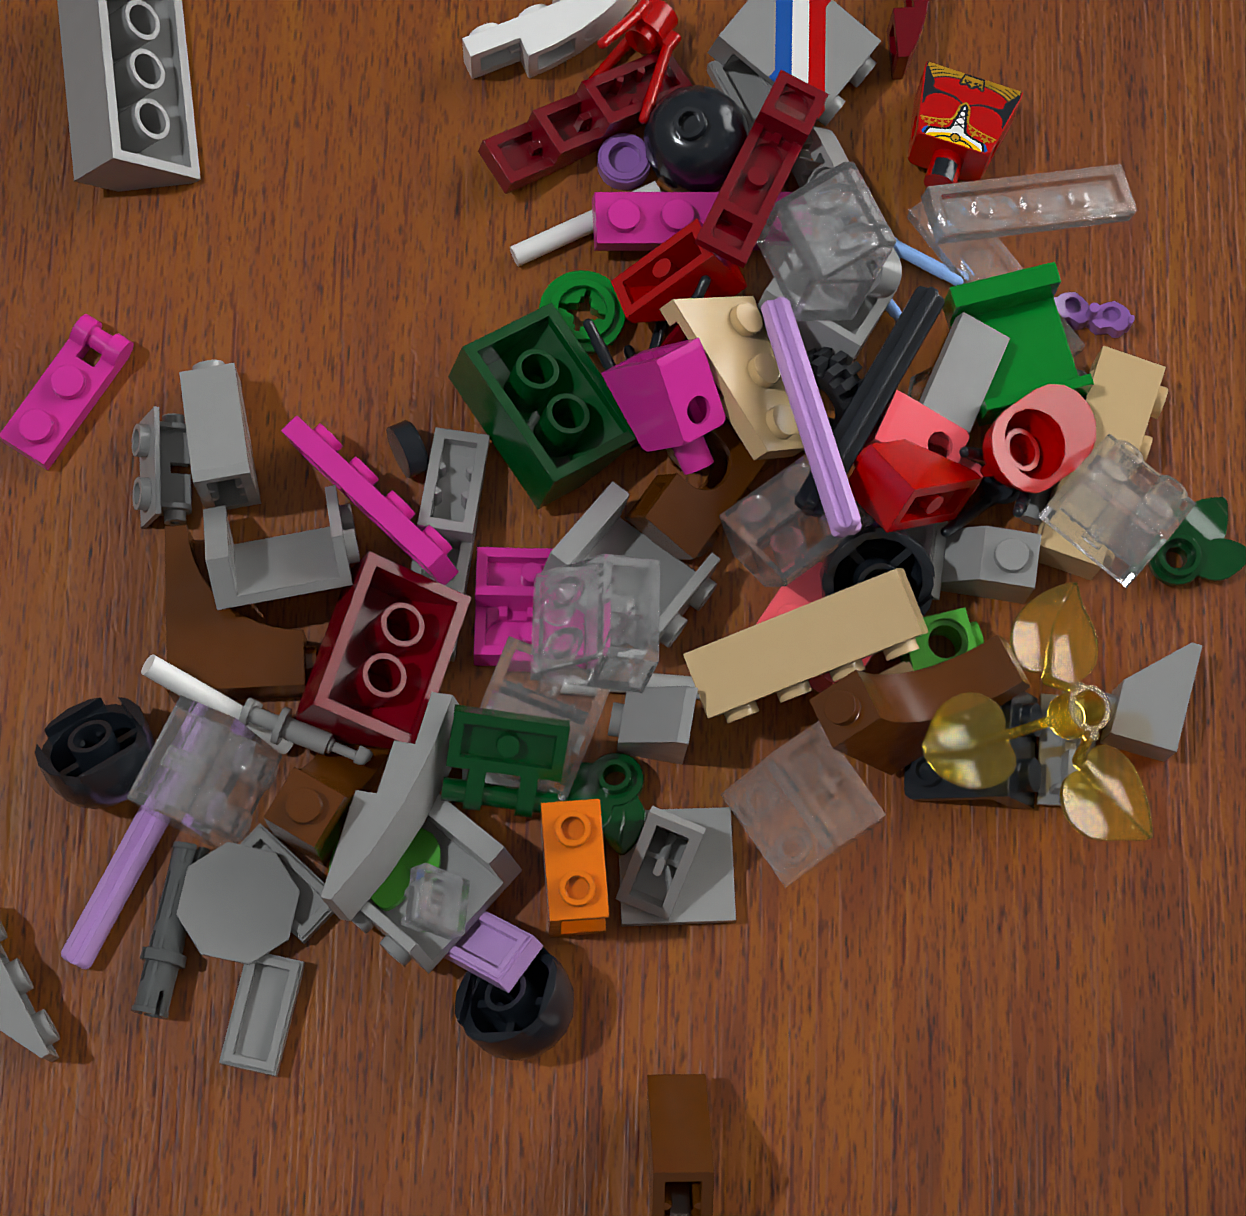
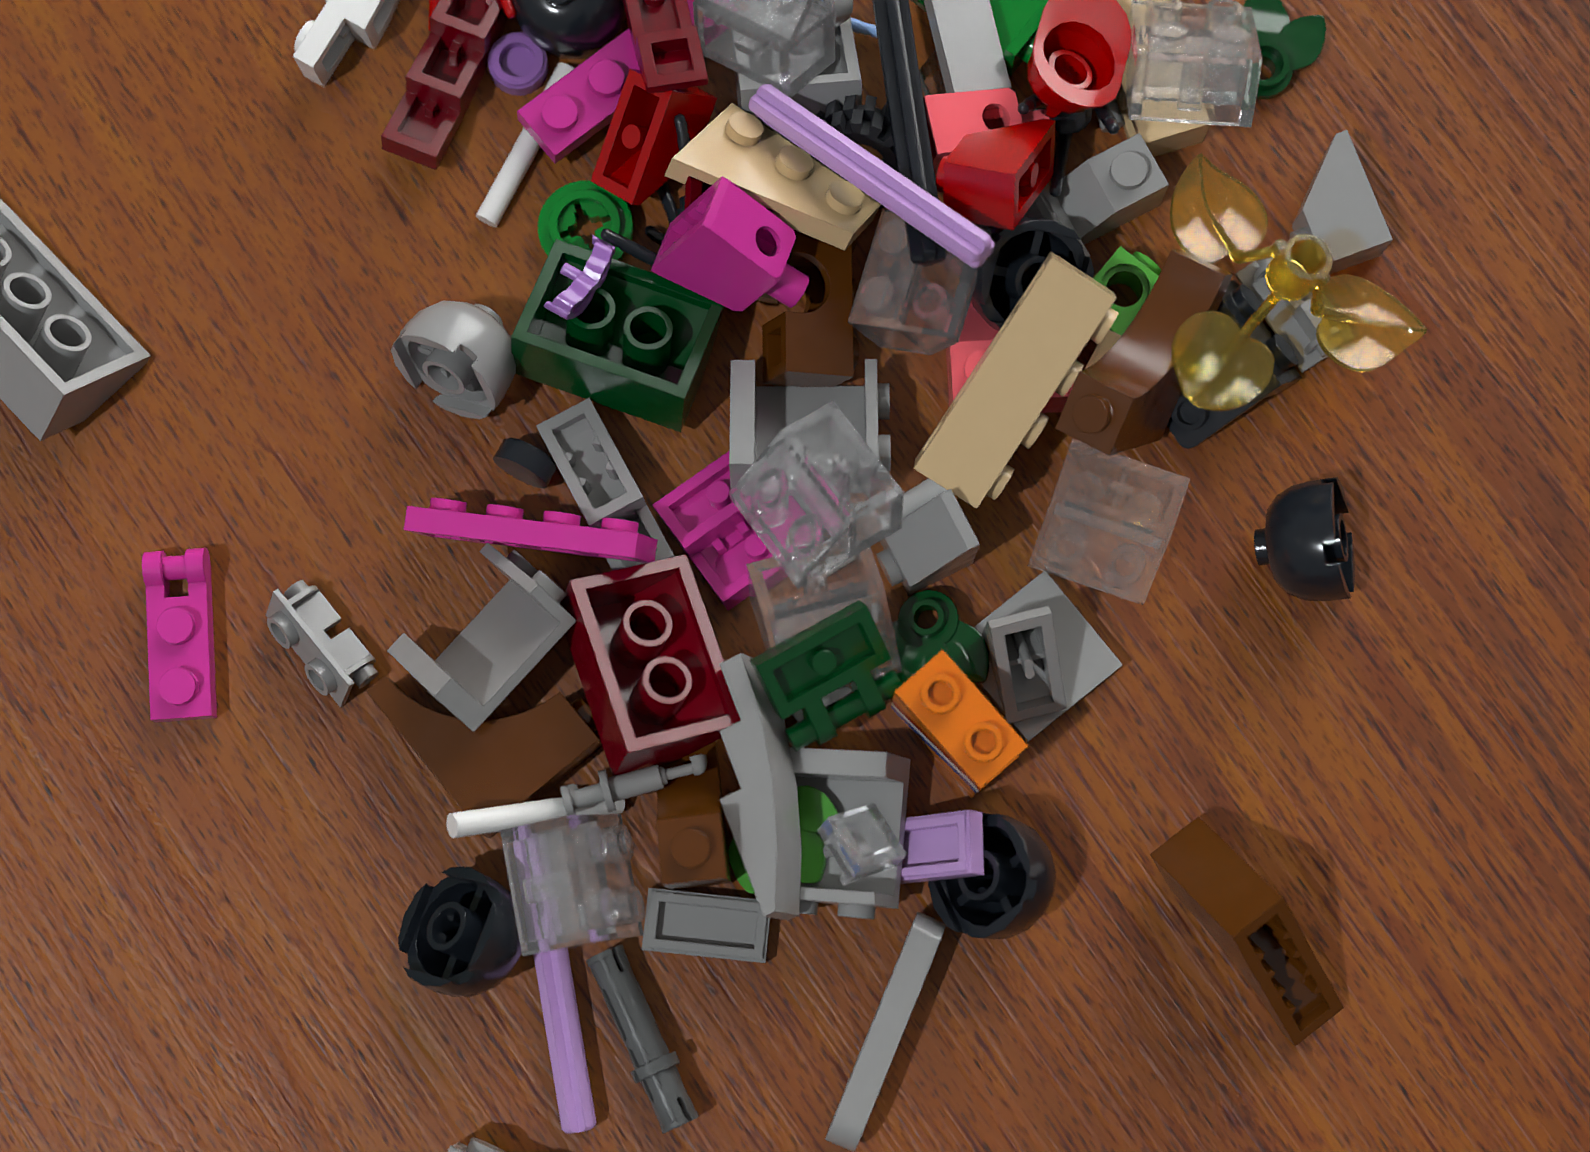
camera: 25 degrees left, 5 degrees up
(218, 436) = (349, 574): light grey slope -> none
(238, 903) = (685, 972): light grey piece -> none
(262, 1014) = (776, 1049): light grey tile -> none
(351, 1059) = (885, 1031): none -> light grey beam
(419, 334) = (458, 353): none -> light grey cylinder
(538, 350) = (585, 283): none -> medium lavender piece
(943, 931) = (1309, 541): none -> black cylinder

